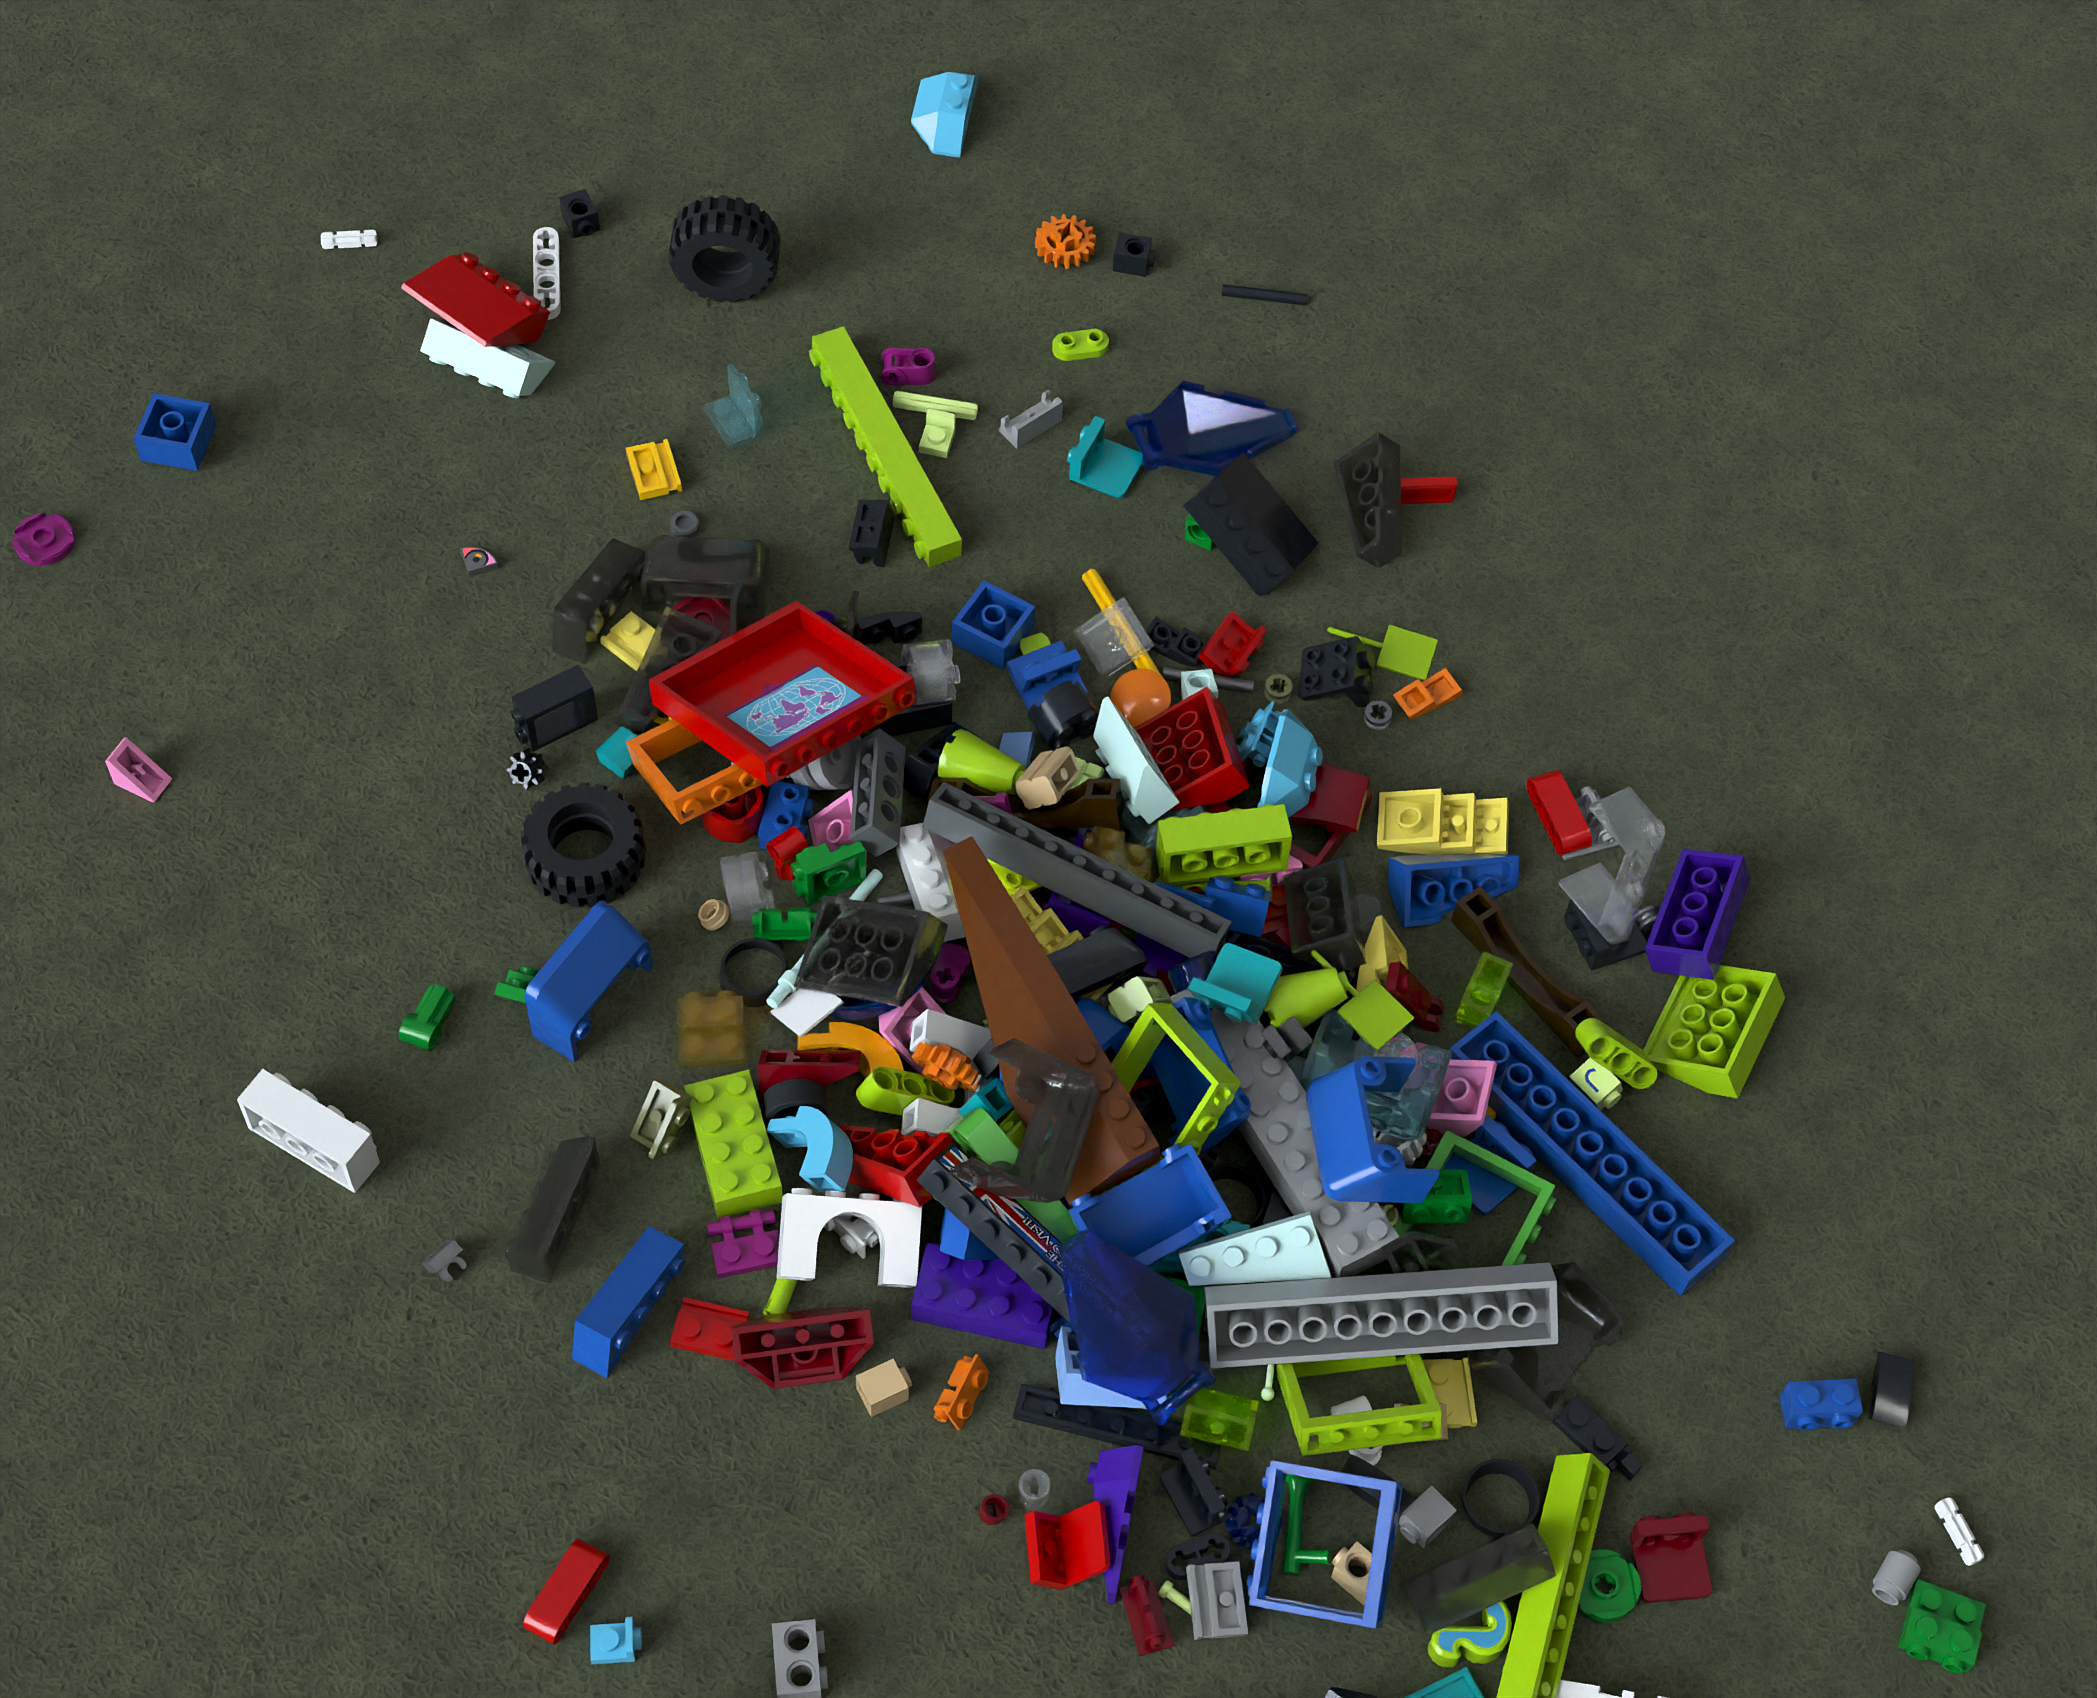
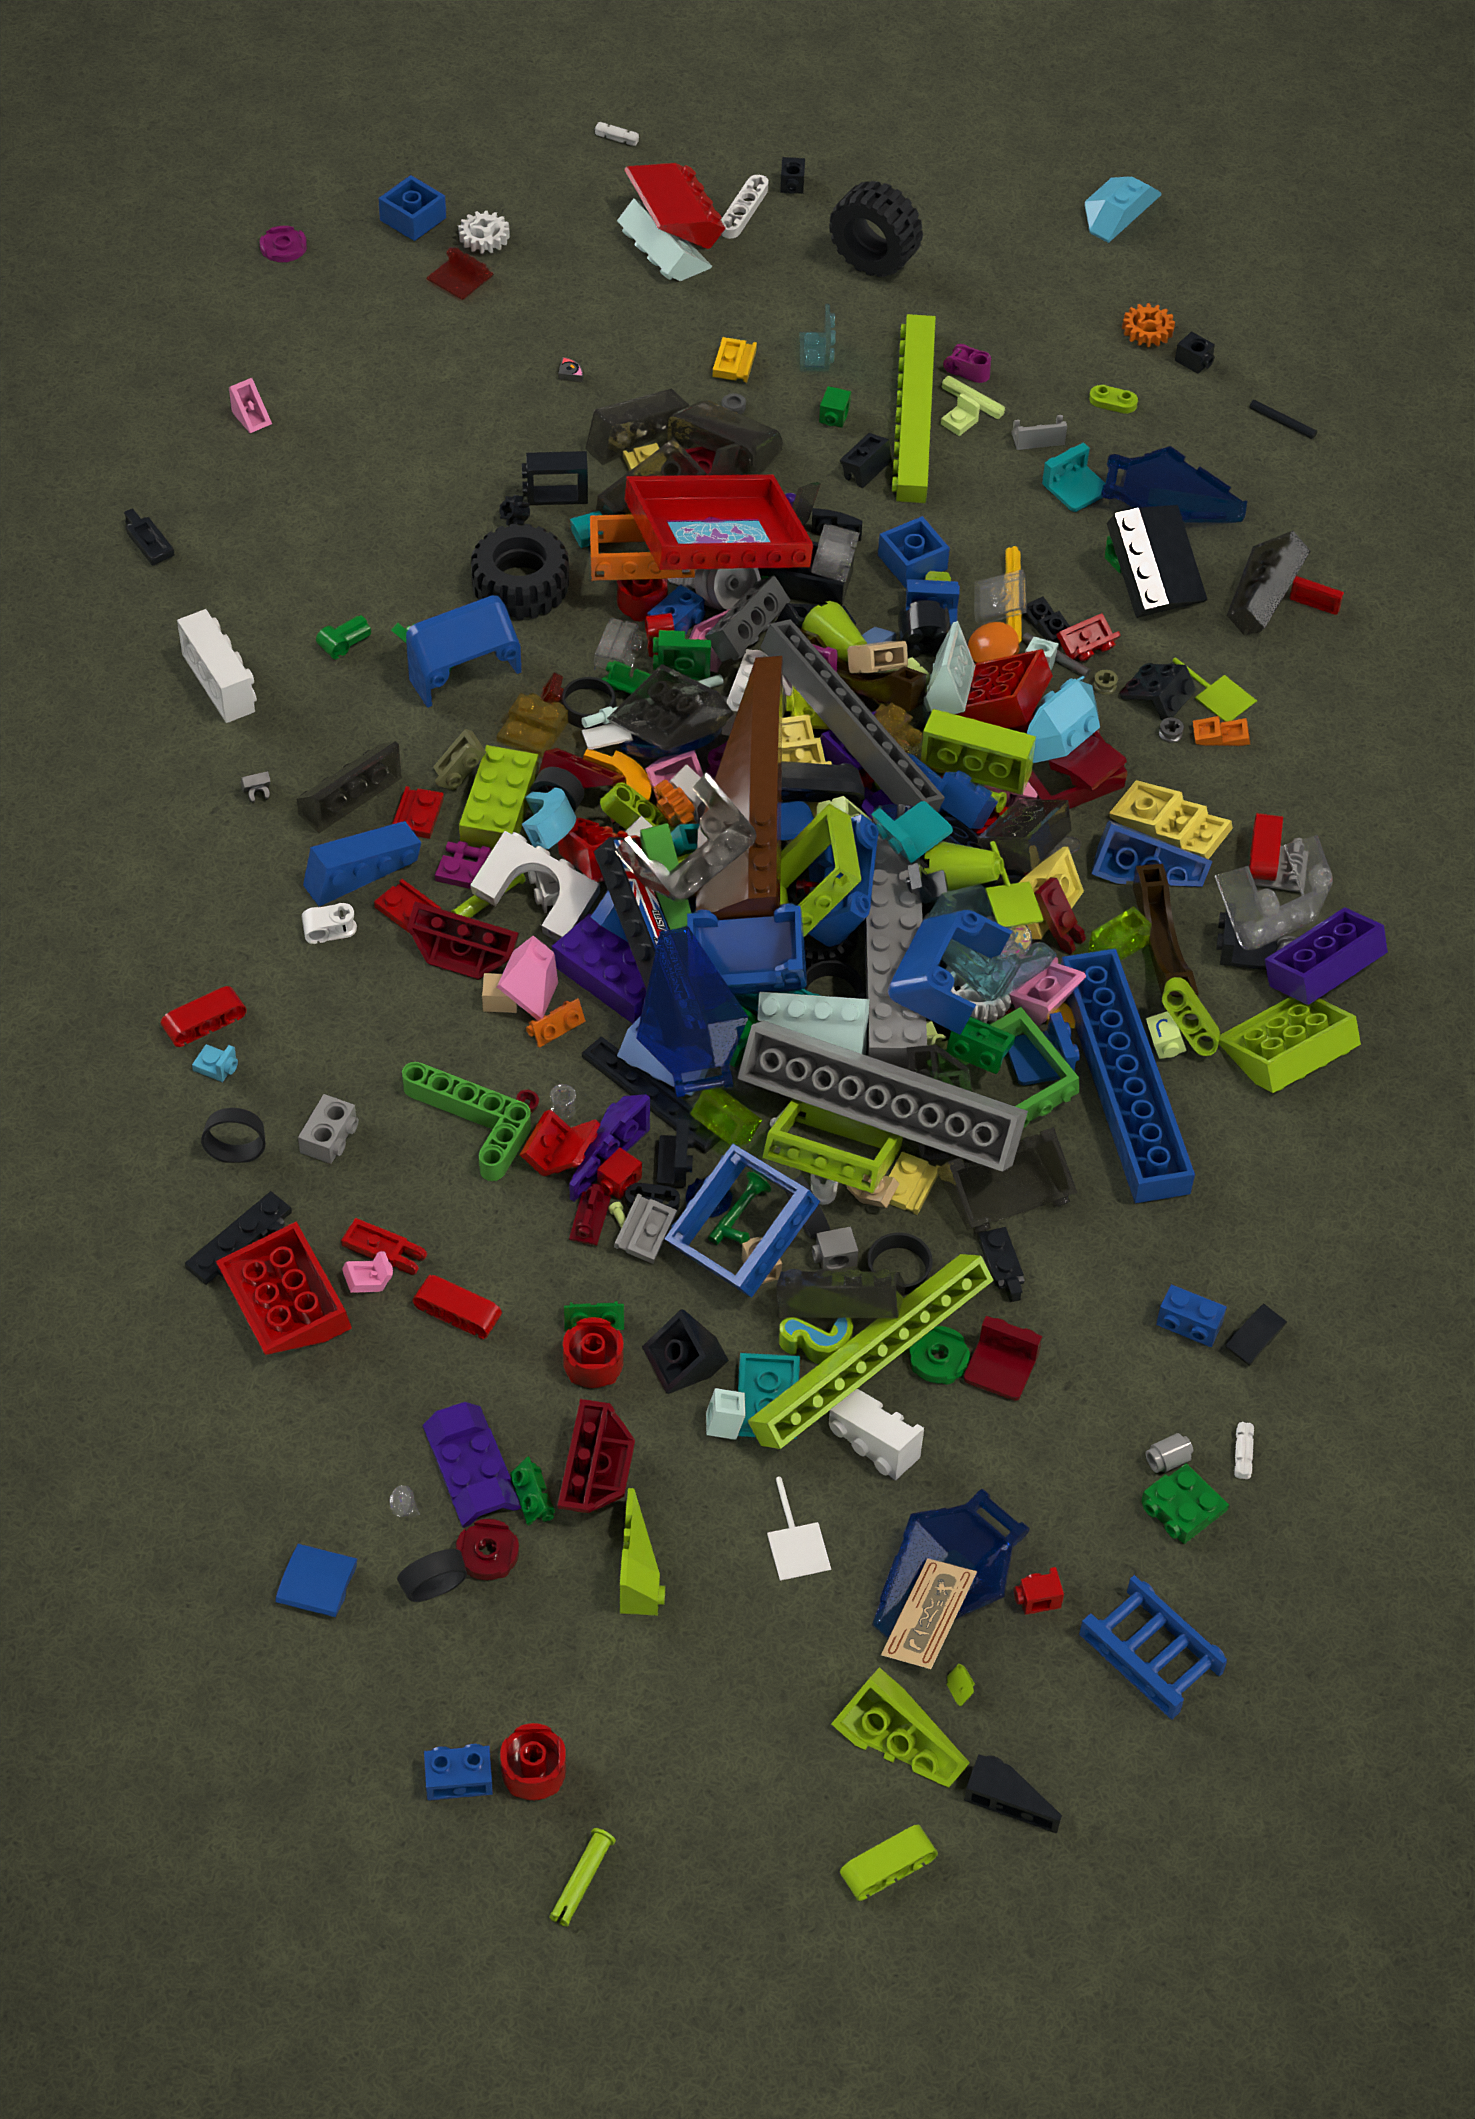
camera: 30 degrees right, 5 degrees down
(116, 996) = (147, 538): none -> black hinge
(274, 427) = (484, 232): none -> white gear
(278, 492) = (460, 274): none -> clear red hinge
(633, 1400) = (327, 924): none -> white piece
(647, 1201) = (419, 810): none -> red plate
(706, 976) = (552, 689): none -> clear red plate
(713, 914) = (584, 654): tan plate -> none
(799, 482) = (835, 407): none -> green brick
(909, 1356) = (530, 977): none -> bright pink slope
(945, 1550) = (476, 1109): none -> bright green beam
(1147, 1547) = (618, 1173): none -> red brick

